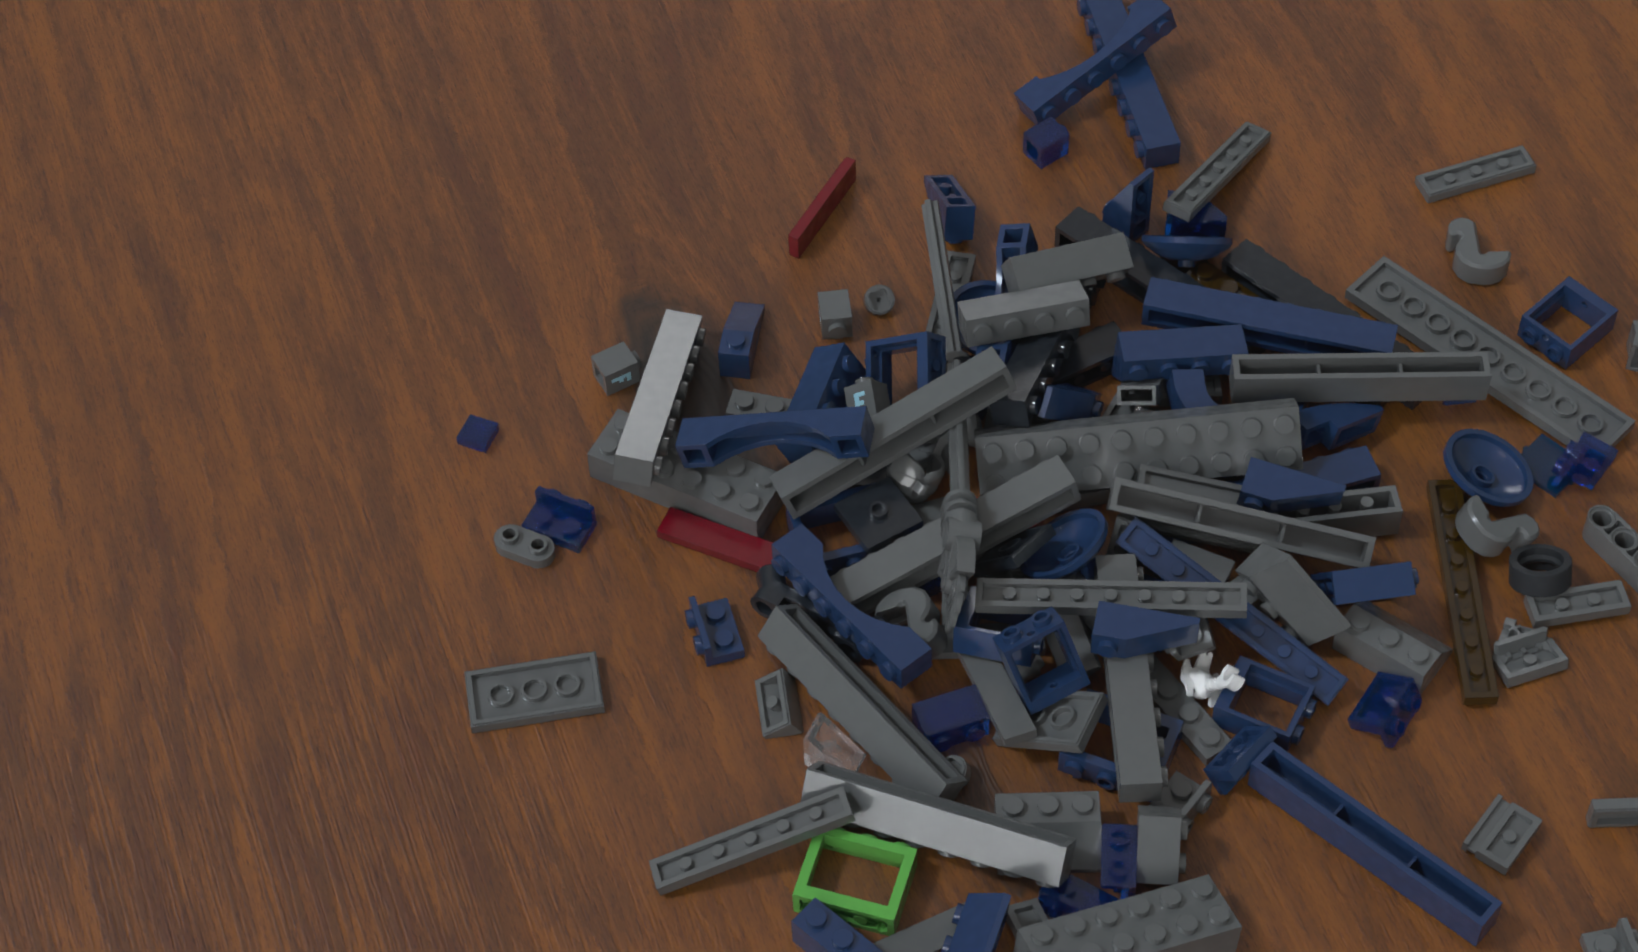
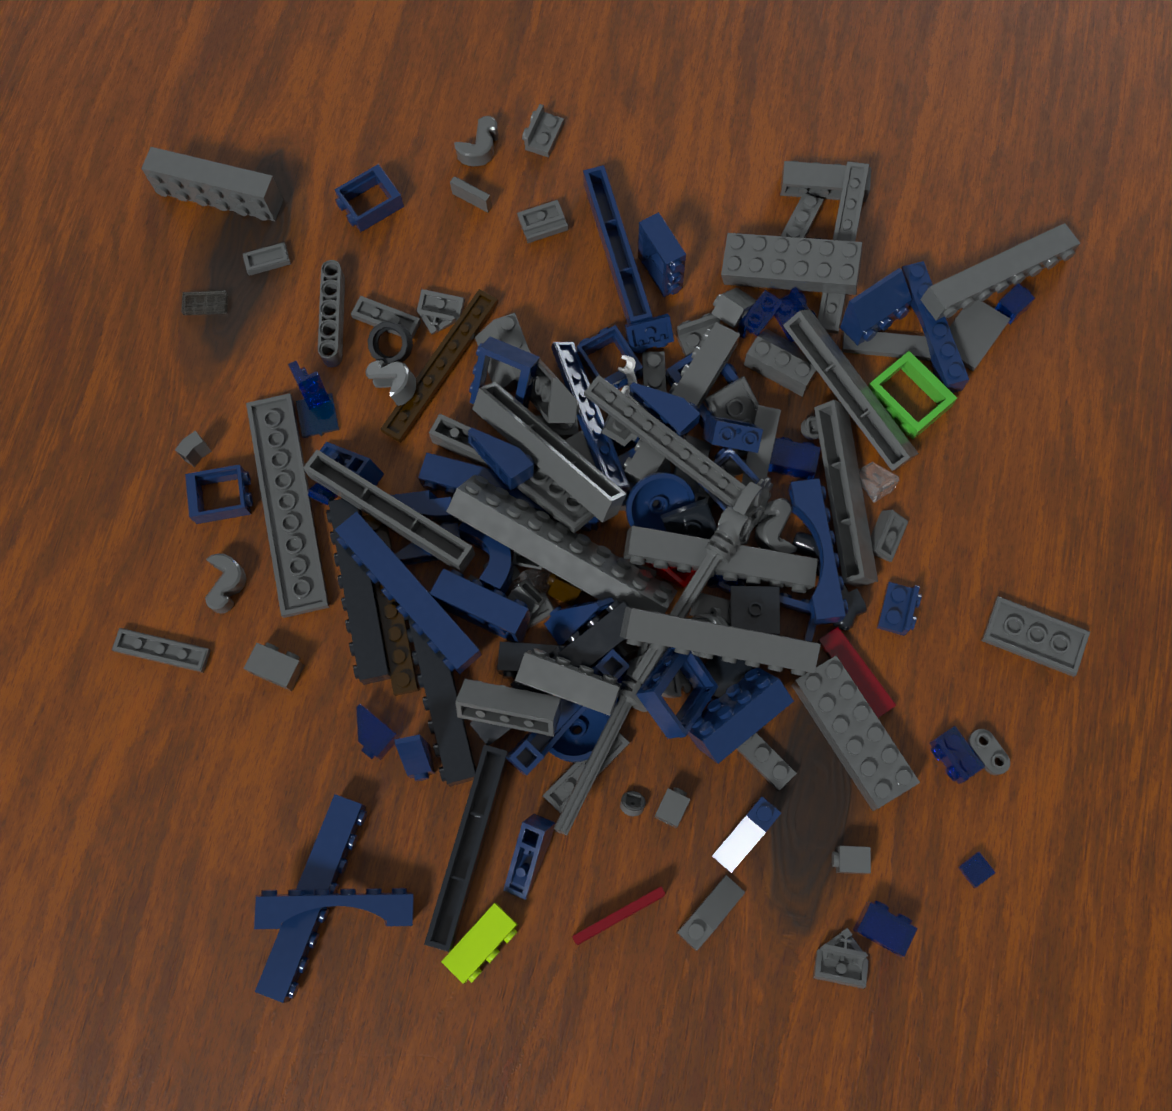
camera: 145 degrees left, 20 degrees up
(546, 330) = (885, 929): none -> clear blue brick
(572, 289) = (842, 961): none -> dark grey slope
(658, 399) = (849, 792): brick -> none
(713, 439) = (765, 650): dark blue arch -> none
(732, 253) = (710, 913): none -> dark grey slope
(751, 840) = (962, 442): dark grey plate -> none
(868, 393) = (712, 690): dark grey brick -> none
(938, 122) = (480, 944): none -> lime brick
(1009, 163) = (467, 849): none -> black brick
(1046, 142) = (418, 868): clear blue brick -> none
(1187, 248) = (400, 701): dark blue dish -> none
(1216, 171) = (329, 753): dark grey tile -> none
(1311, 823) = (661, 254): none -> dark blue window
(1346, 214) = (274, 666): none -> dark grey brick
(1387, 707) = (544, 322): clear blue bracket -> none
(1437, 419) = (355, 462): none -> dark blue slope
(1488, 467) = (361, 419): dark blue dish -> none

